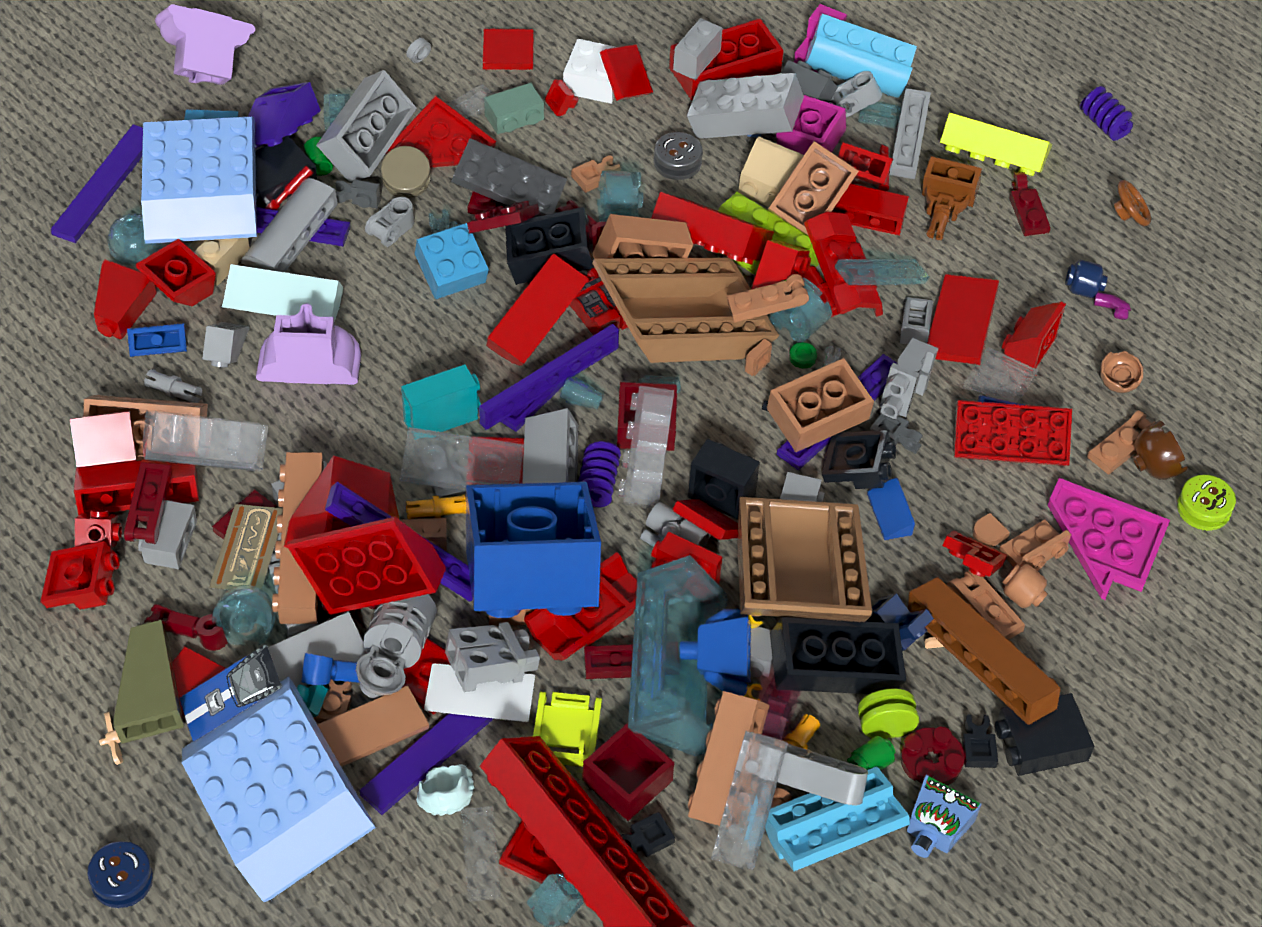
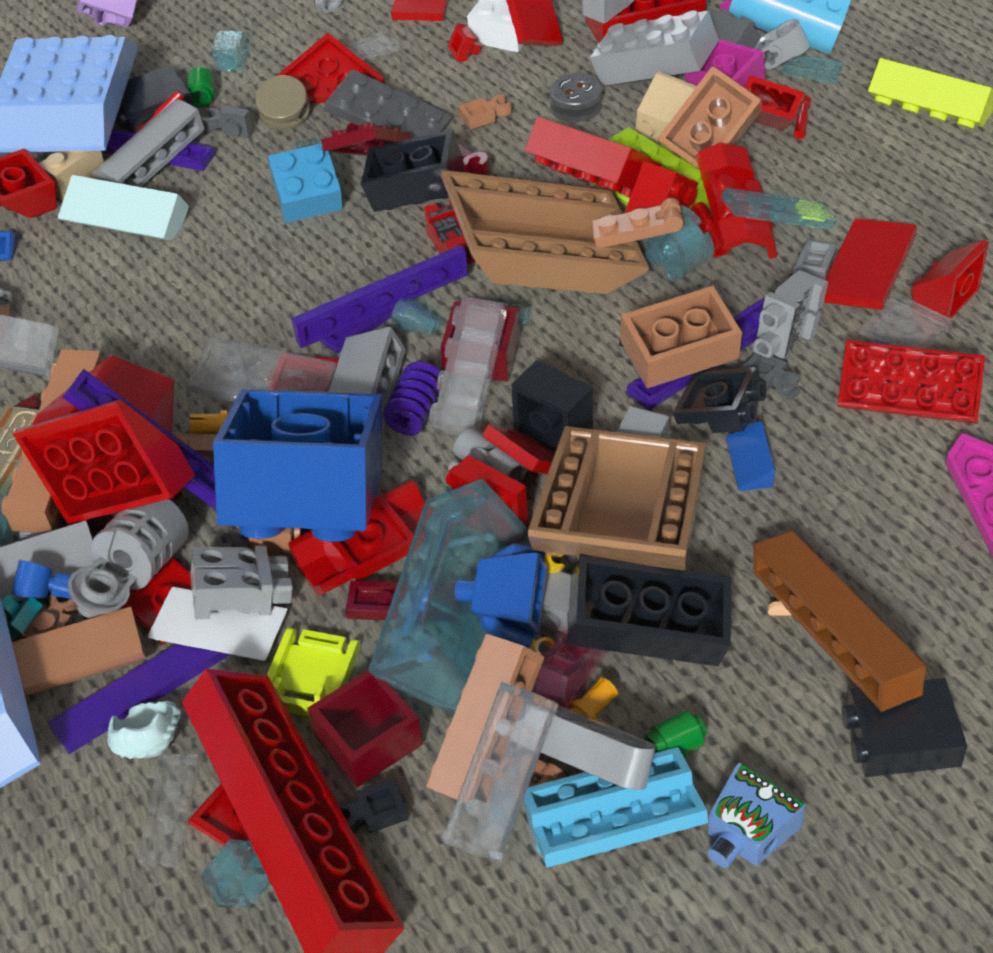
camera: 15 degrees right, 5 degrees down
(224, 343) = (47, 251): light grey slope -> none
(282, 111) = (170, 44): dark purple slope -> none
(309, 351) = (130, 259): lavender piece -> none
(366, 126) = (251, 58): light grey brick -> none
(392, 220) = (257, 145): light grey piece -> none
(441, 400) = (255, 311): teal brick -> none
(514, 108) = (411, 50): sand green brick -> none
(536, 311) = (380, 230): red brick -> none
(619, 194) = (501, 130): clear light blue brick -> none
(642, 238) = (511, 158): nougat brick -> none
(758, 357) = (623, 290): nougat tile -> none
(803, 355) = (675, 288): green tile -> none
(873, 208) = (782, 151): red brick -> none
(888, 713) = (704, 684): lime head -> none
(892, 610) = (746, 583): dark blue brick -> none
(910, 133) = (835, 83): light grey gear -> none
(934, 740) = (760, 723): dark red plate -> none
(948, 188) = (871, 135): dark orange brick -> none
(977, 556) = (846, 513): red plate -> none
(979, 747) = (818, 734): black plate -> none
(988, 604) = (854, 568): nougat plate -> none
(989, 531) = (868, 488): nougat tile -> none
(1025, 586) = (903, 550): nougat head -> none
(1028, 207) = (962, 158): dark red plate -> none
(1036, 546) = (923, 509): nougat bracket -> none

